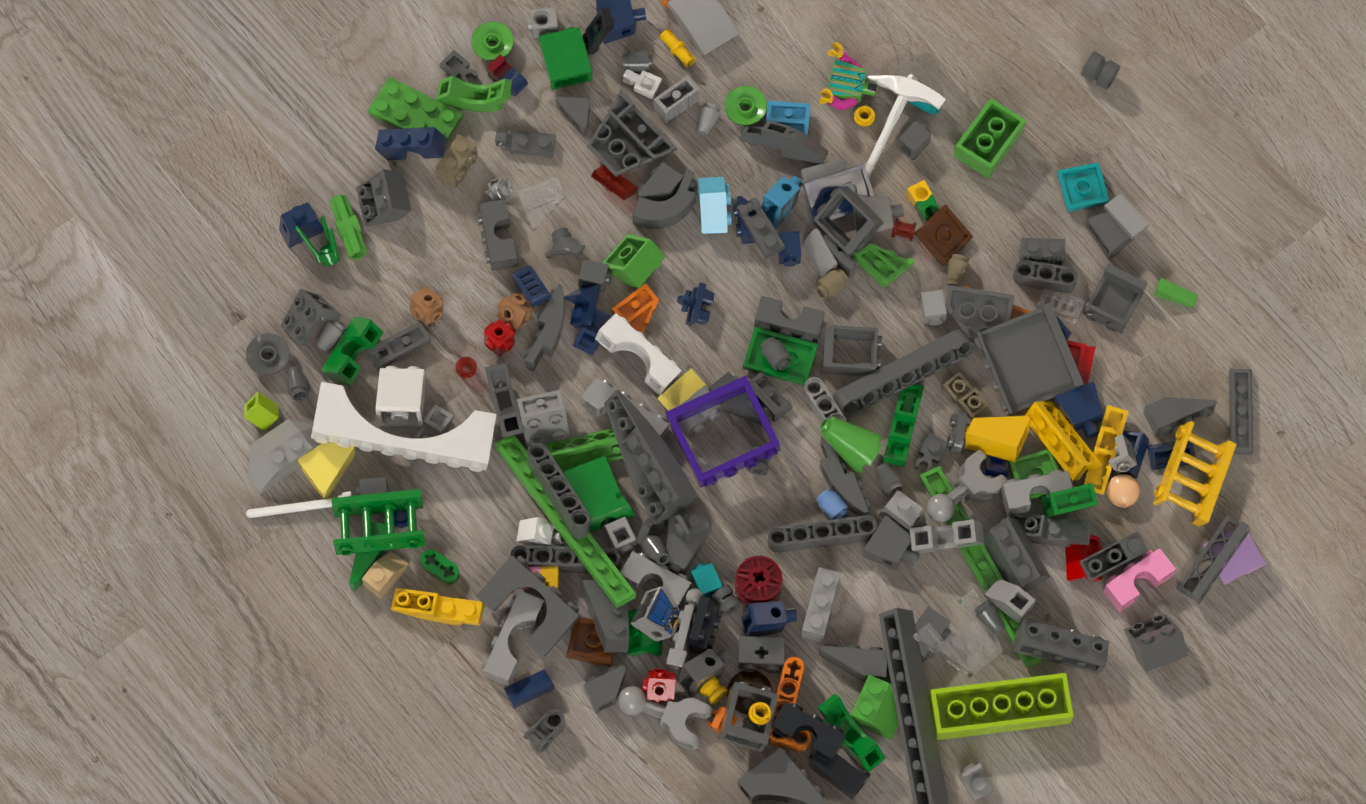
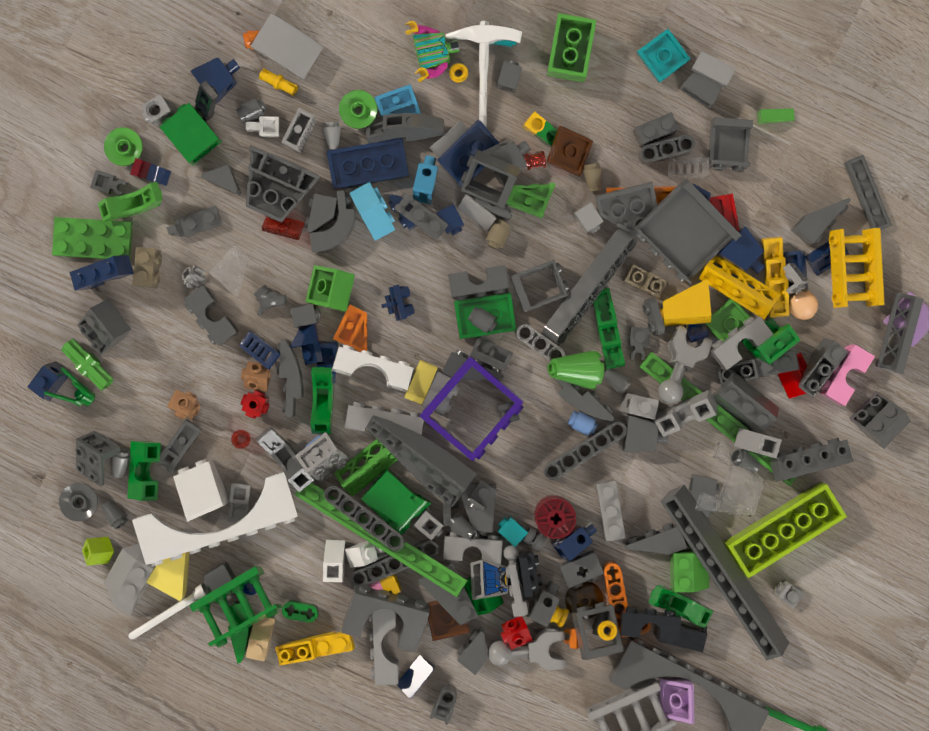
camera: 20 degrees left, 20 degrees up
(502, 529) = (334, 561): none -> white slope
(574, 359) = (322, 400): none -> green arch
(732, 159) = (367, 163): none -> dark blue plate

